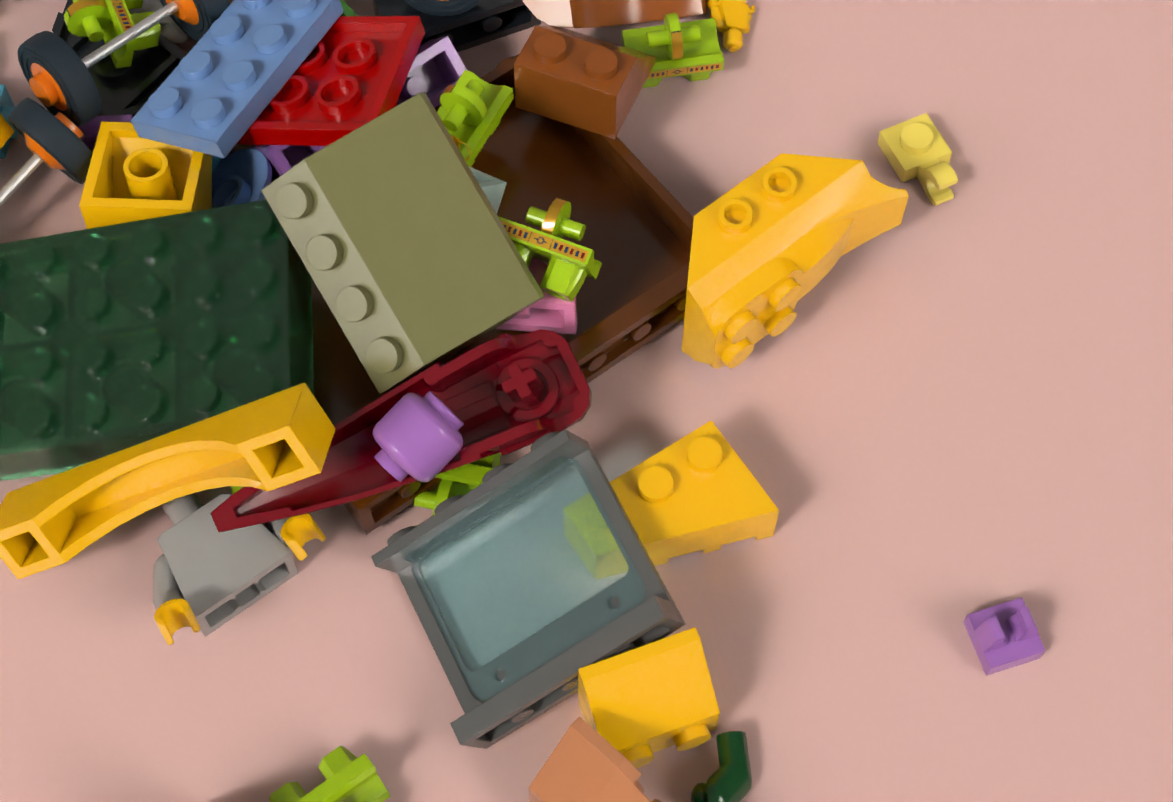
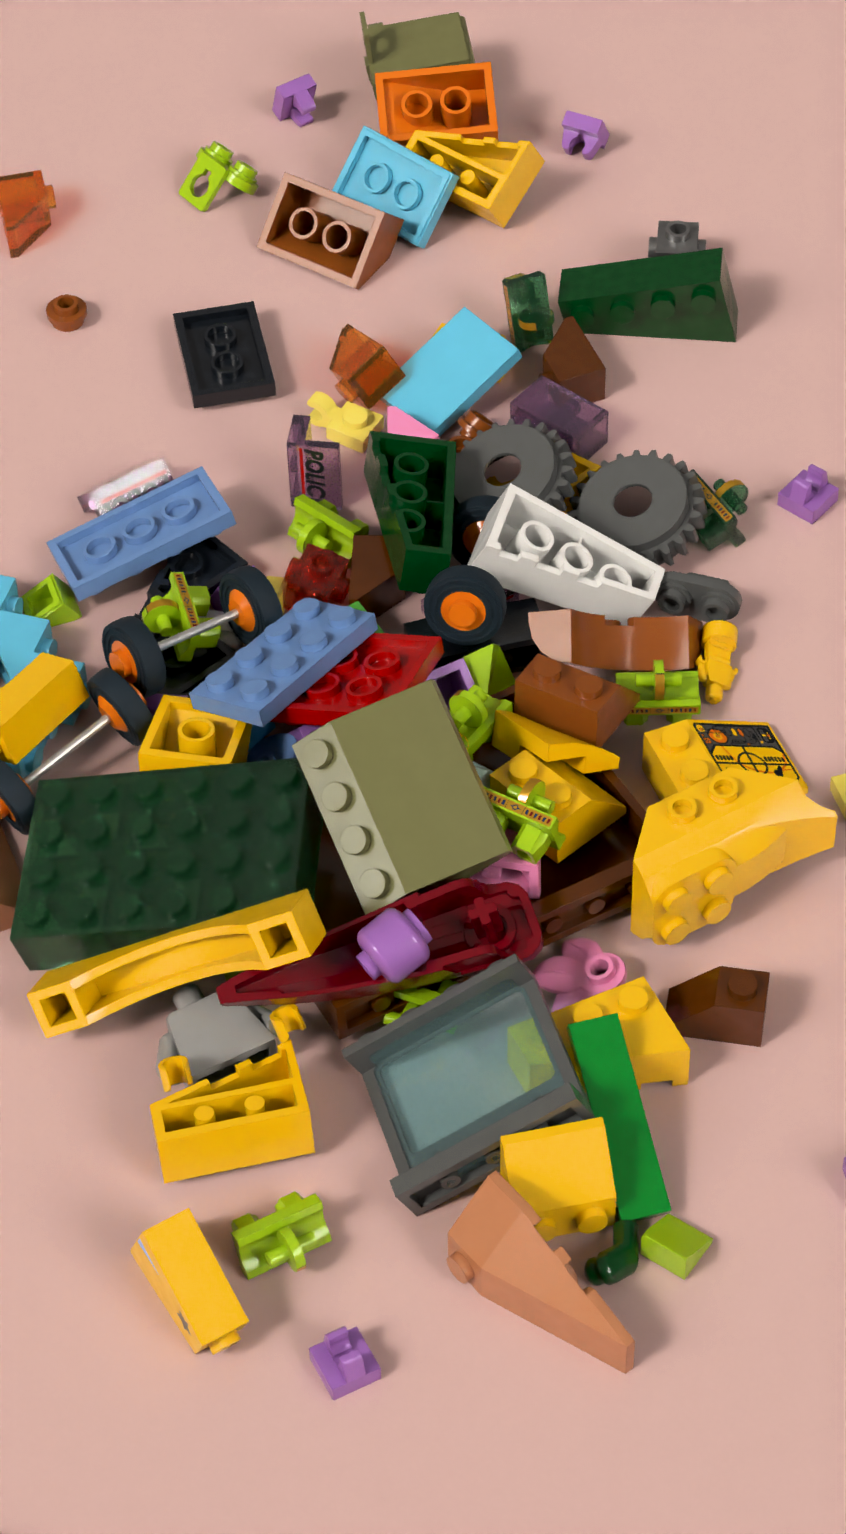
camera: 10 degrees right, 15 degrees down
(255, 664) = (236, 1121): none -> yellow wedge
(479, 45) = (490, 669): none -> lime slope
(539, 134) = (516, 733): none -> yellow slope
(598, 199) = (579, 802): none -> yellow slope
(625, 419) = (577, 972): none -> bright pink plate
(708, 601) = (614, 1095): none -> green tile
(744, 124) = (697, 749): none -> yellow slope
(790, 750) = (674, 1245): none -> lime slope
(799, 438) = (721, 1005): none -> reddish brown slope

